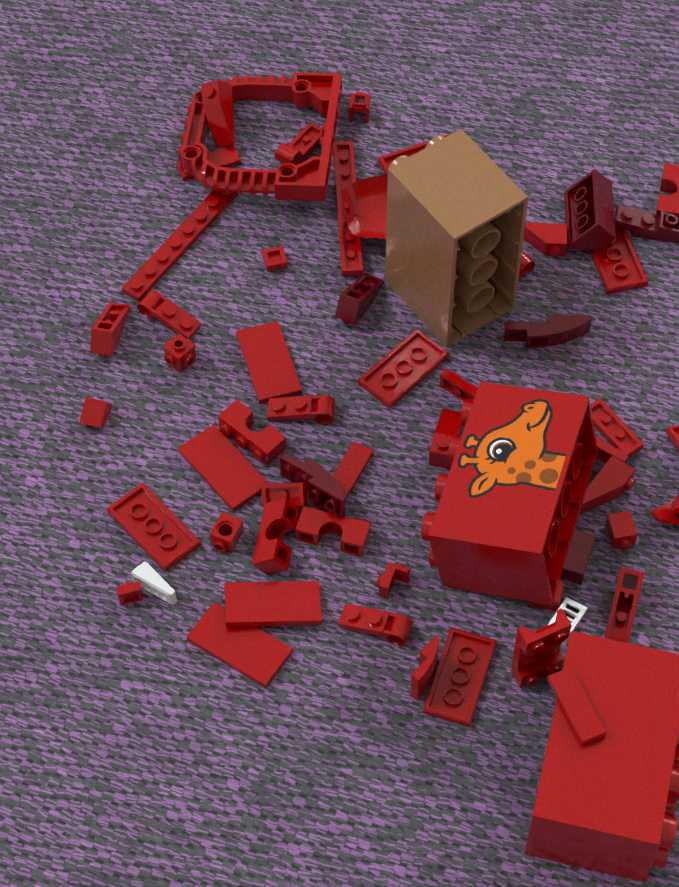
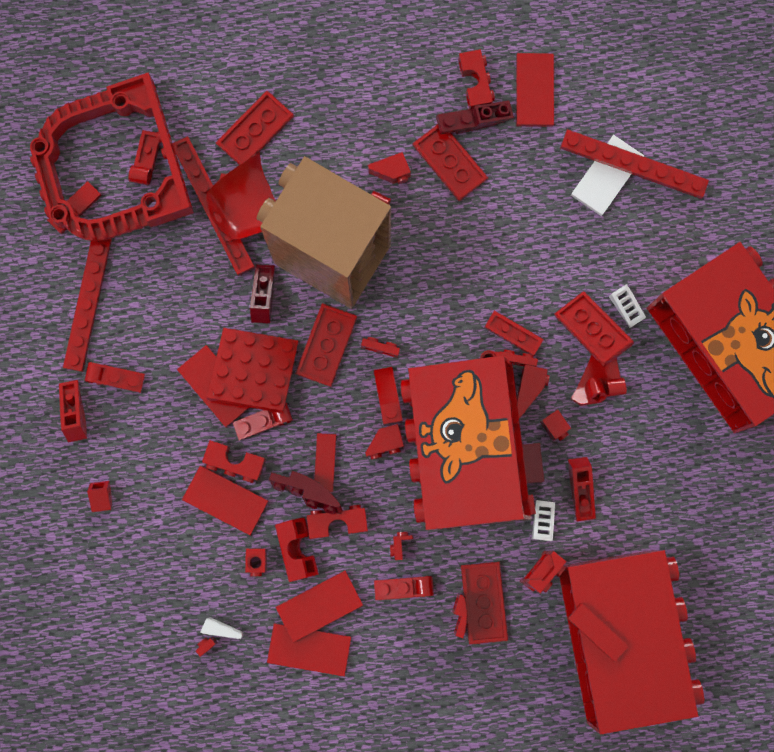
camera: 25 degrees left, 25 degrees up
(153, 527) = (195, 577): red tile -> none
(179, 353) = (148, 415): red brick -> none
(218, 107) = (61, 159): red slope -> none
(274, 258) = (175, 284): red plate -> none
(293, 491) = (286, 509): red plate -> none
(314, 358) = (253, 370): none -> red plate
(359, 103) = (176, 94): red window -> none
(420, 474) = (386, 440): none -> red slope
(555, 331) = (433, 259): dark red slope -> none
(590, 212) = (416, 131): dark red slope -> none

